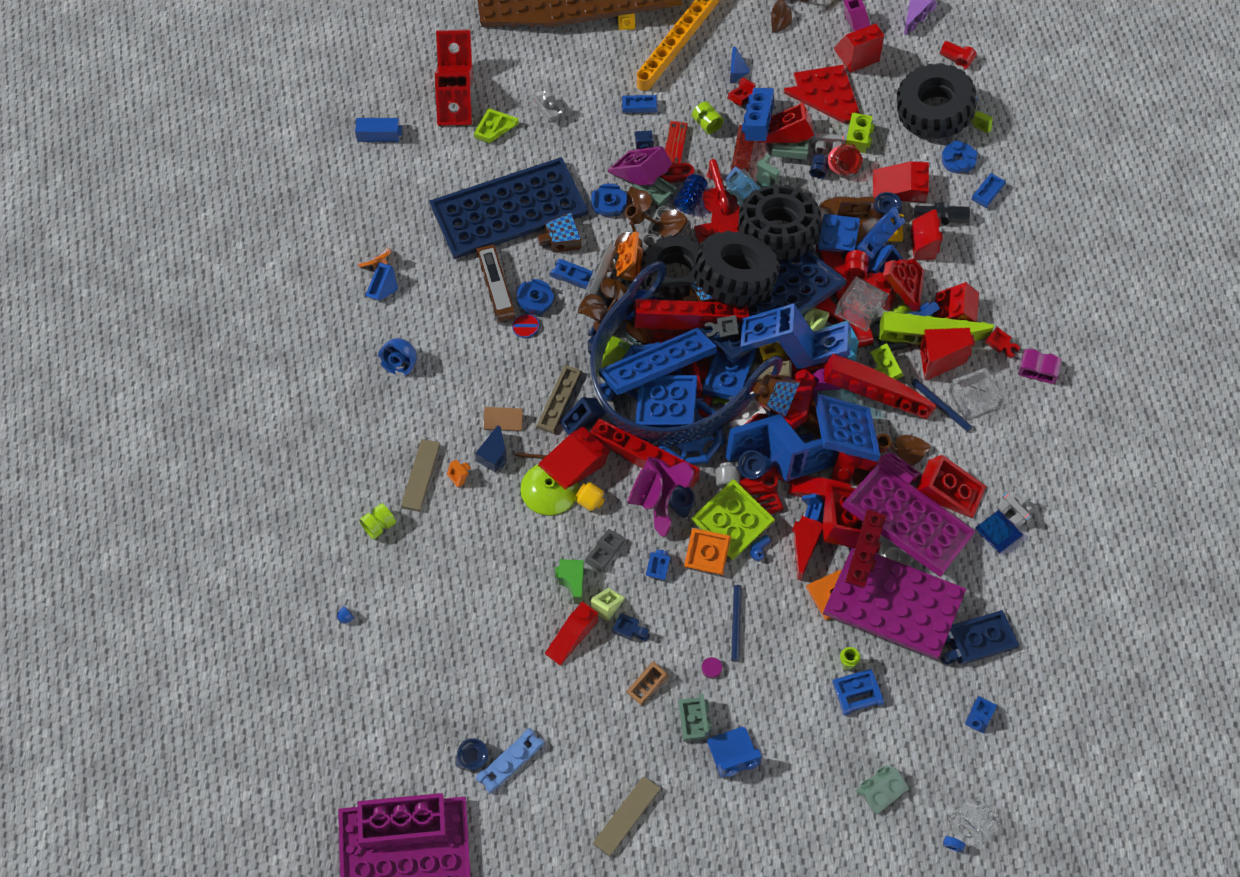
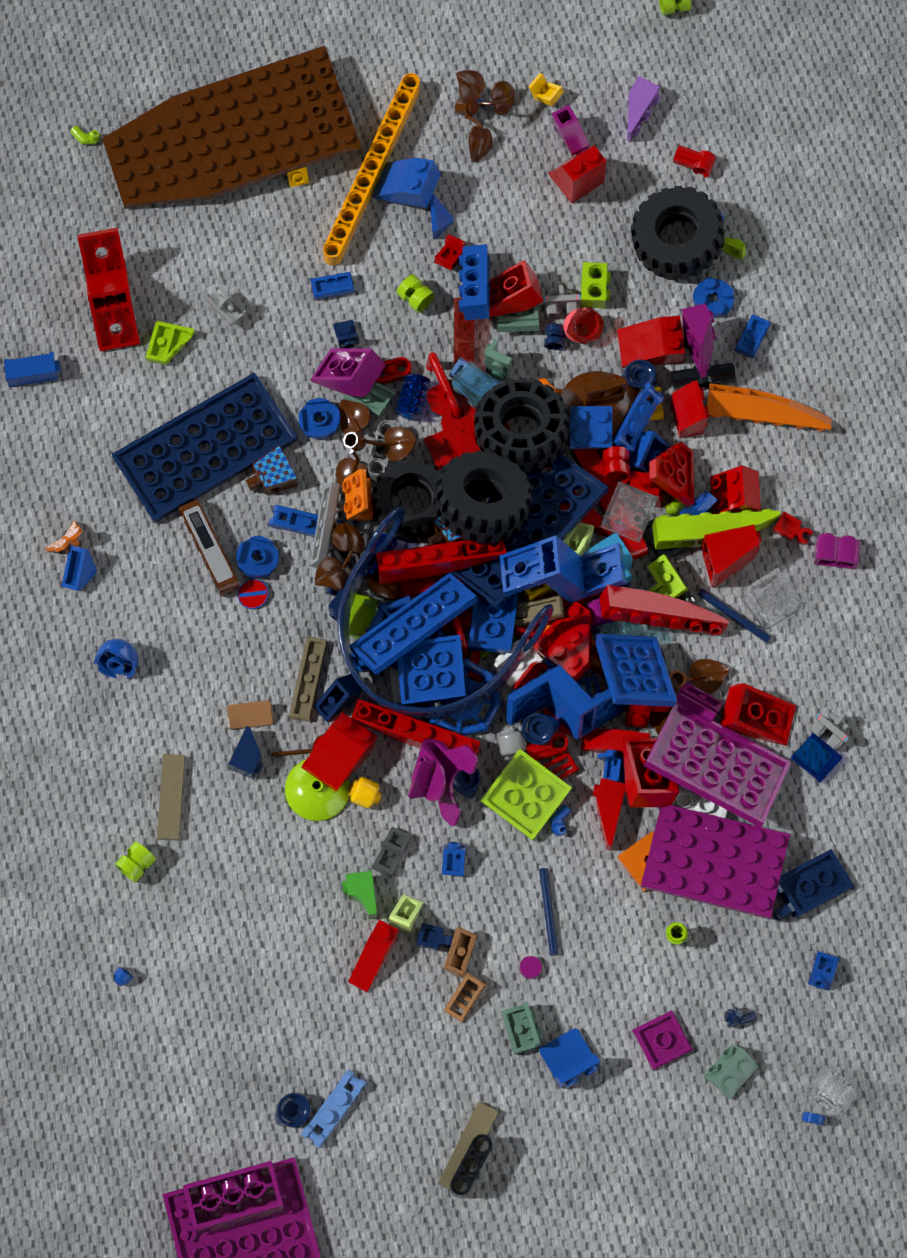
camera: 10 degrees left, 10 degrees up
(458, 472) = (213, 788): orange tile -> none
(620, 839) = (476, 1156): none -> black beam
(649, 642) = (460, 952): none -> medium nougat slope
(676, 141) = (383, 330): red tile -> none
(707, 551) = (504, 836): orange plate -> none
(717, 35) = (408, 182): none -> blue slope
(726, 327) = (482, 570): dark grey plate -> none
(776, 392) = (552, 644): torso -> none
(822, 751) = (662, 1040): none -> magenta tile
(825, 91) = (548, 234): red wing -> none
(856, 685) = (688, 961): blue plate -> none
(865, 549) = (676, 812): dark red bracket -> none
(892, 741) = (735, 1017): none -> dark blue plate
(942, 178) = (699, 335): none -> magenta slope
(989, 243) = (762, 406): none -> orange slope

